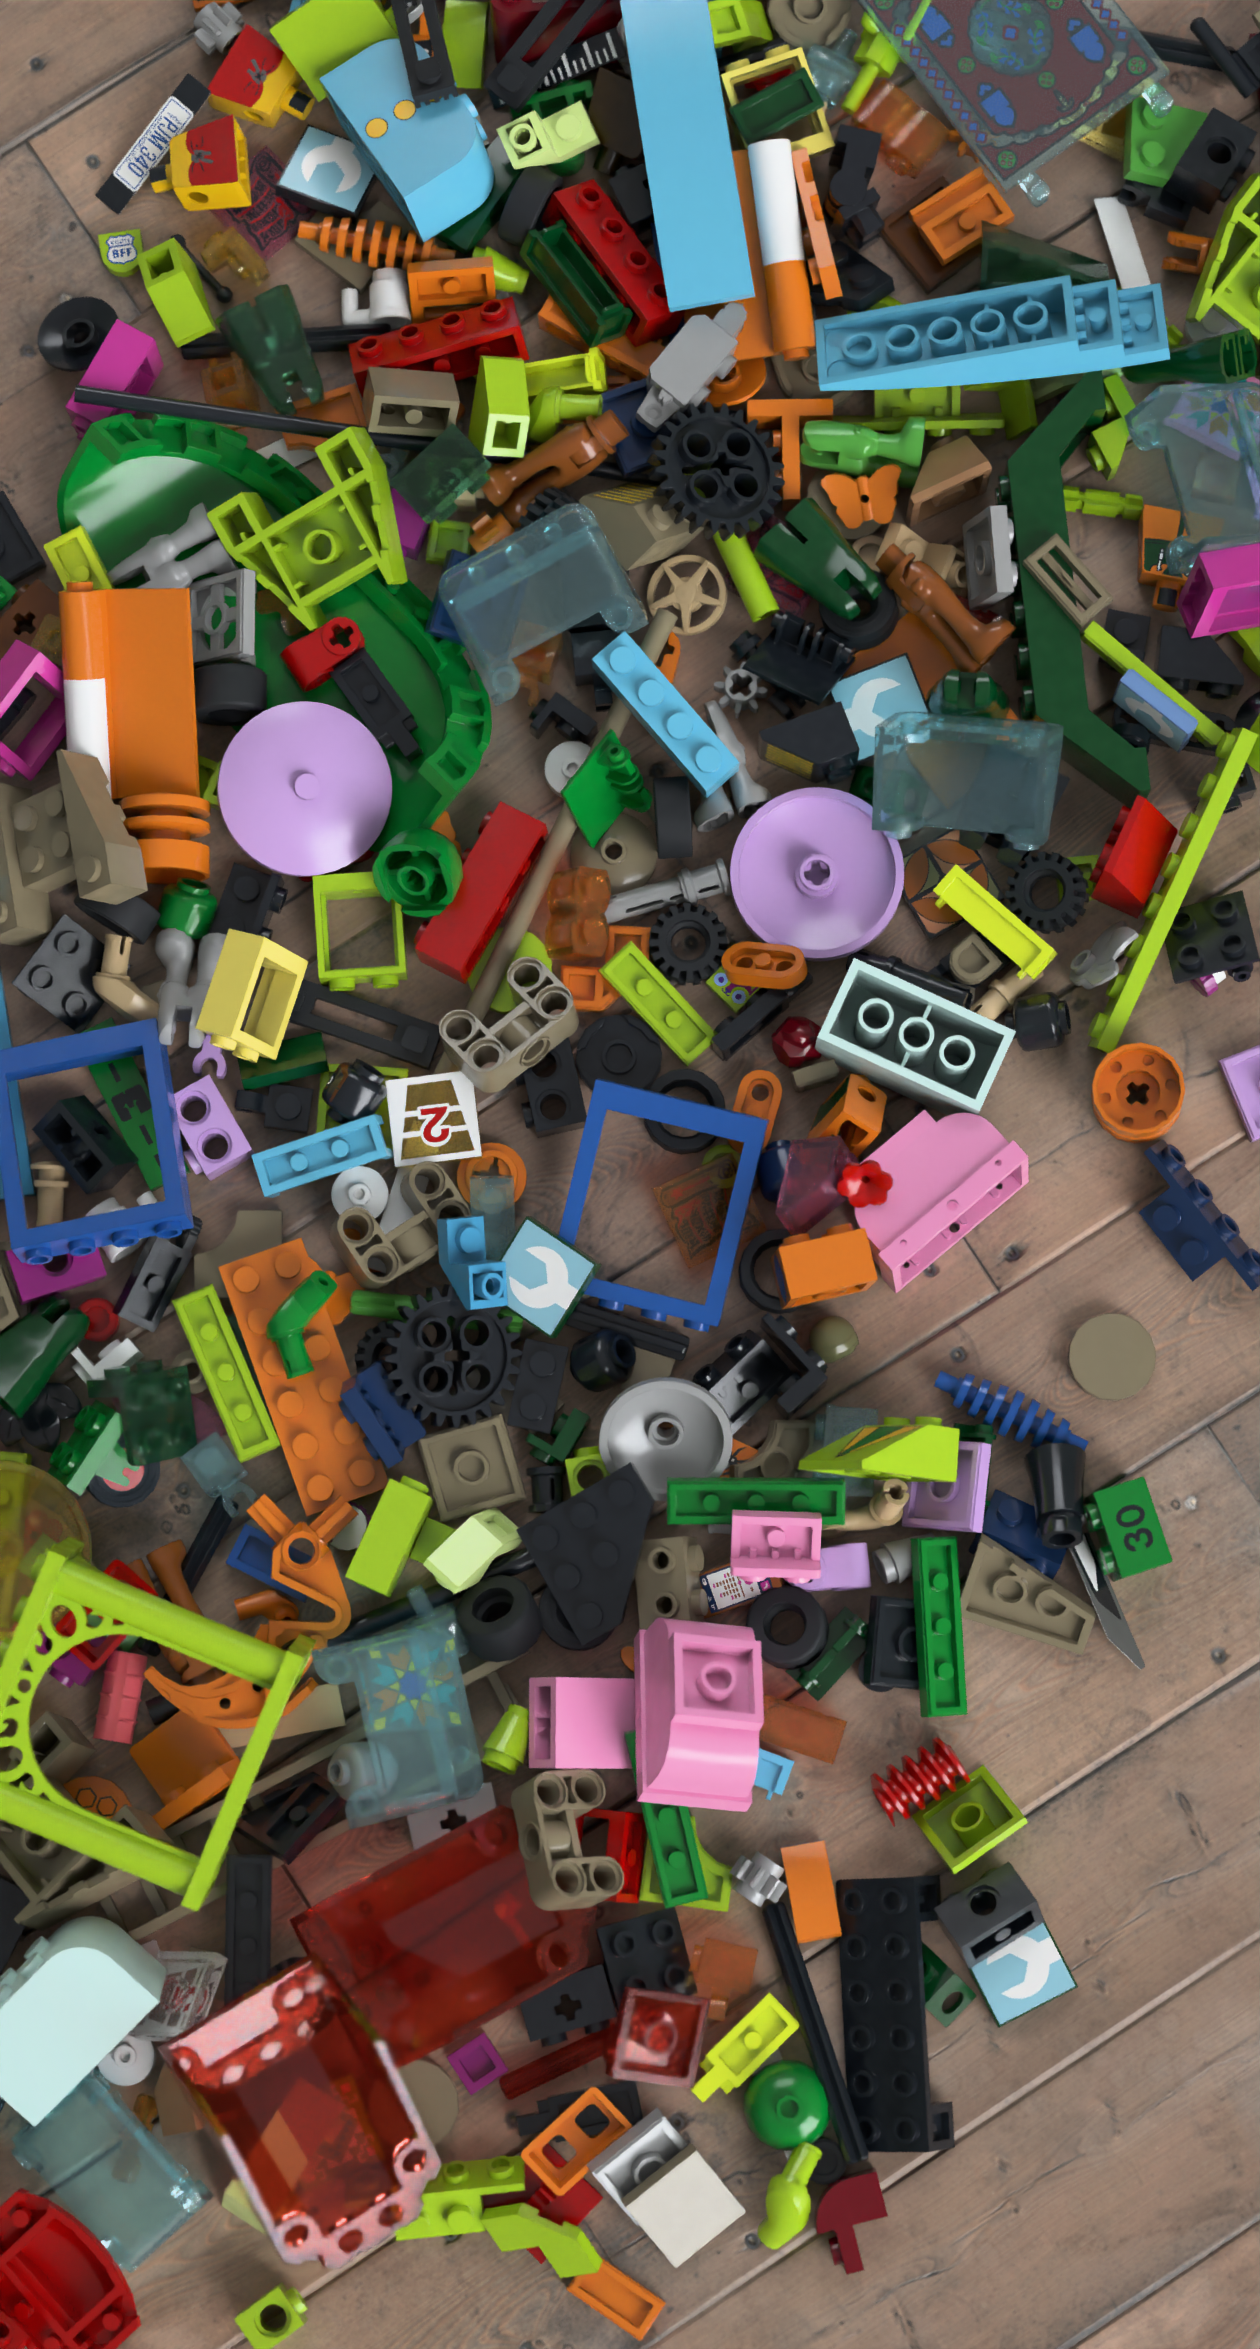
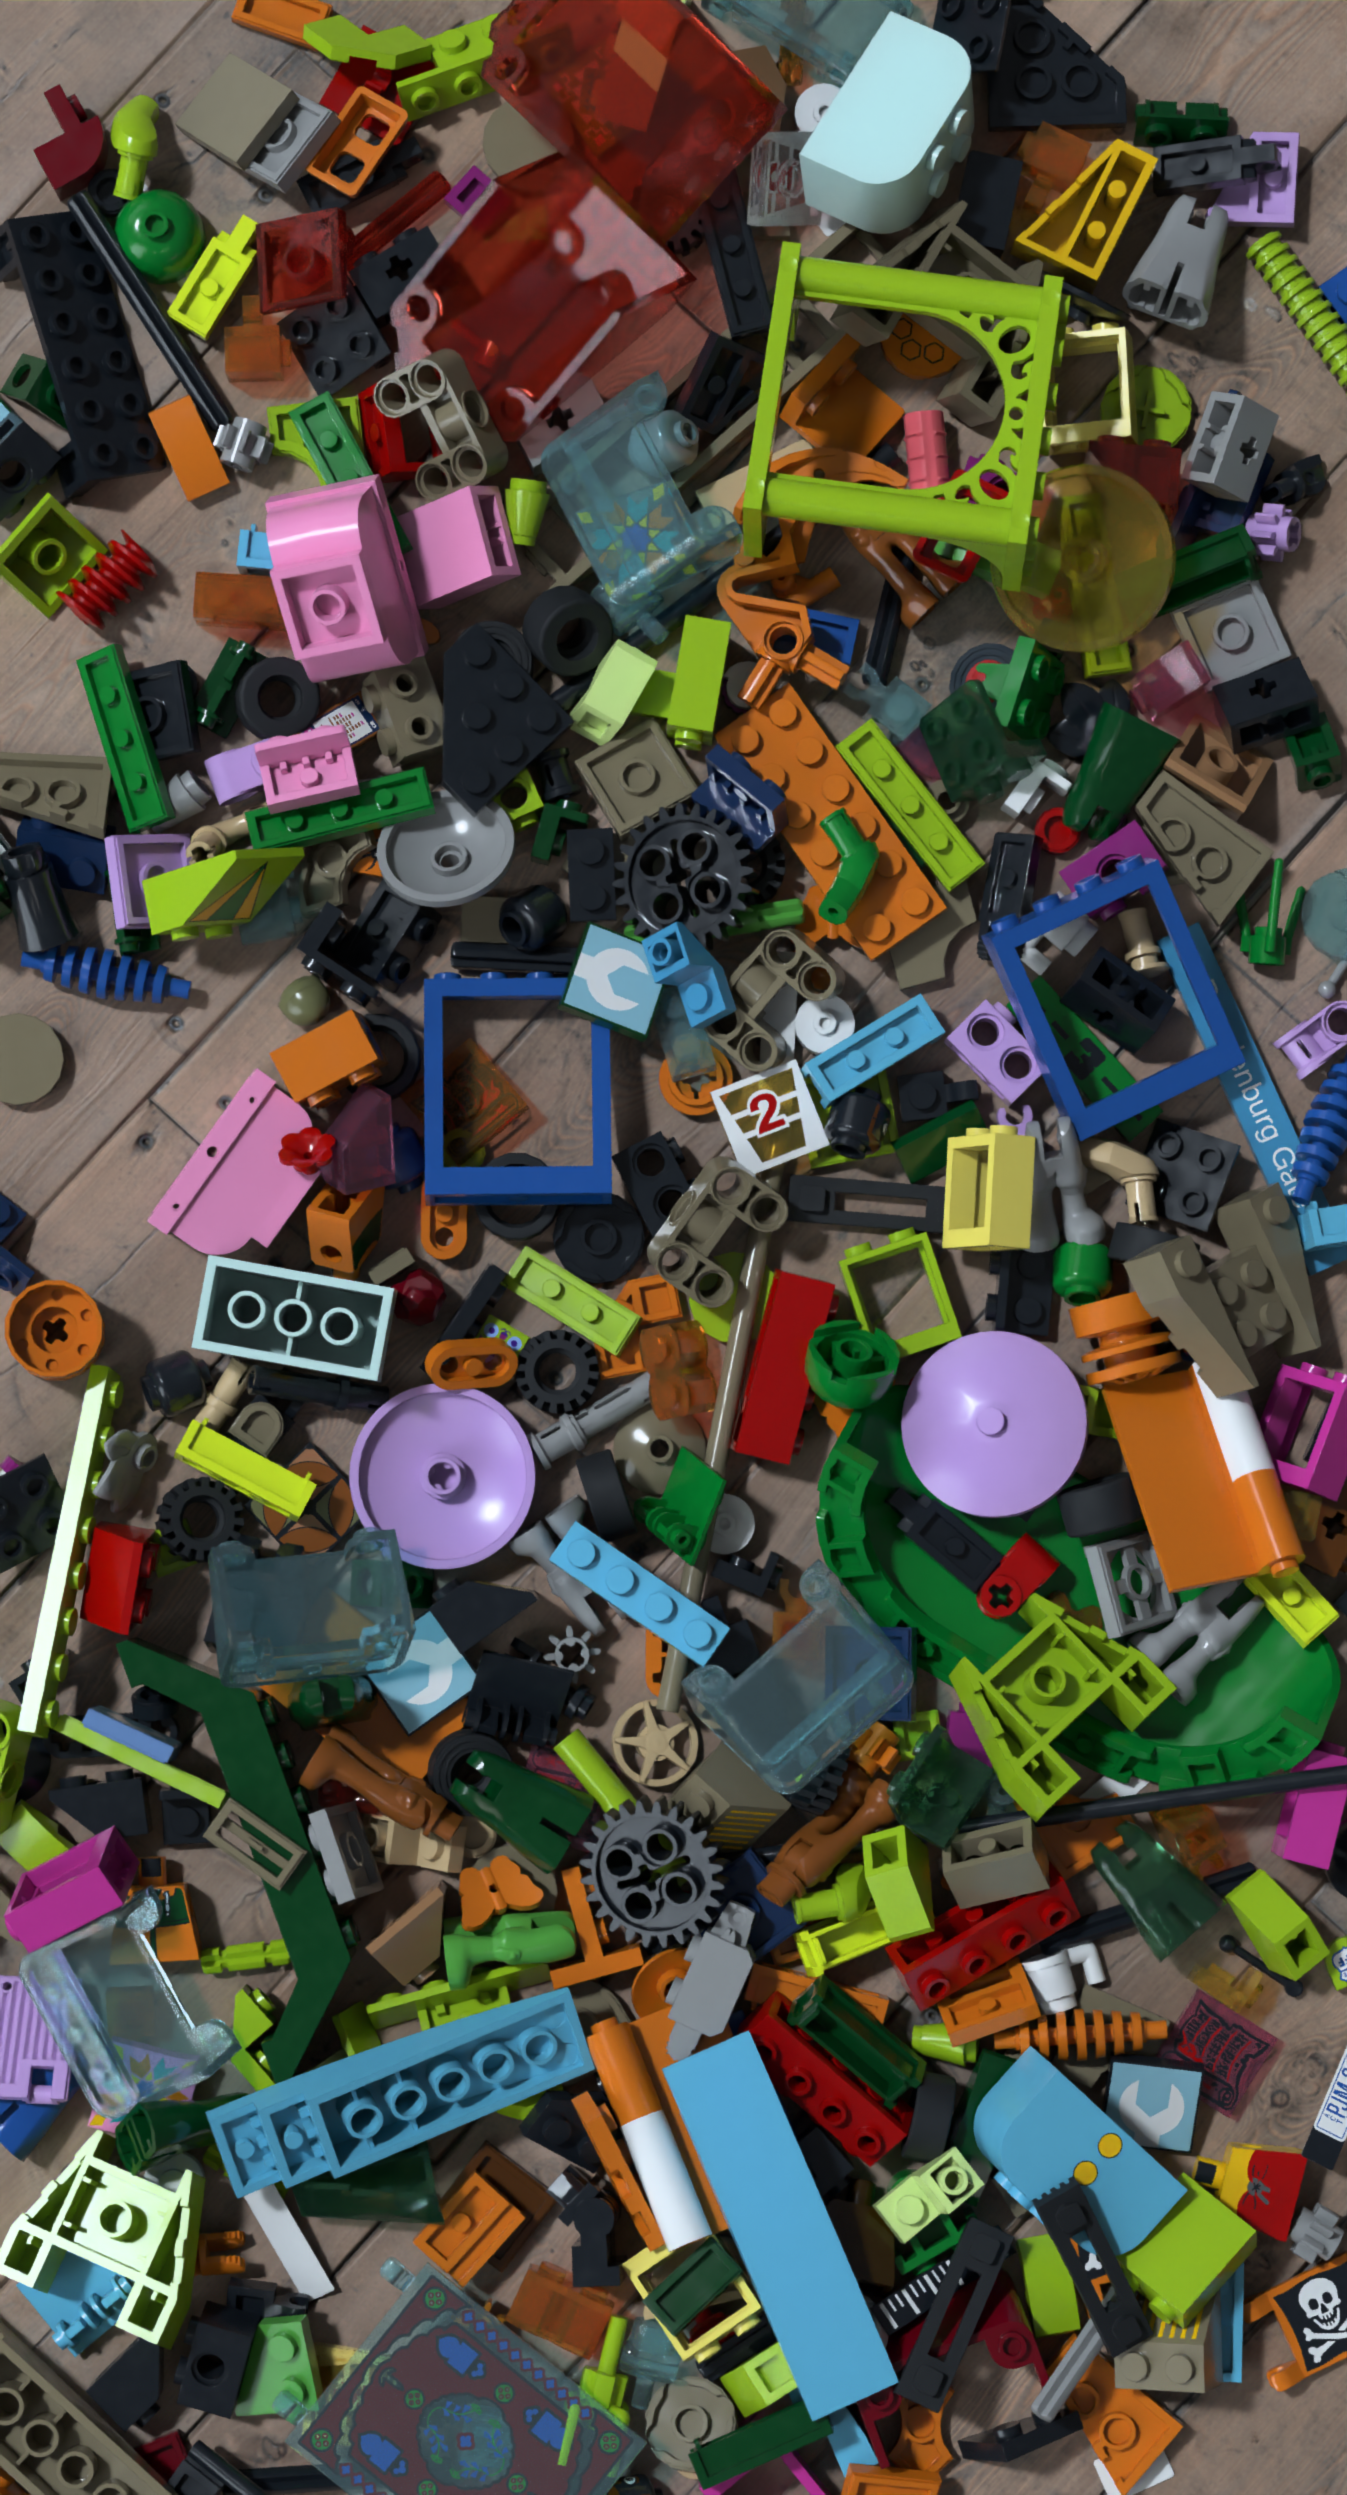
camera: 160 degrees right, 5 degrees up
(207, 167) = (1283, 2073): torso -> none

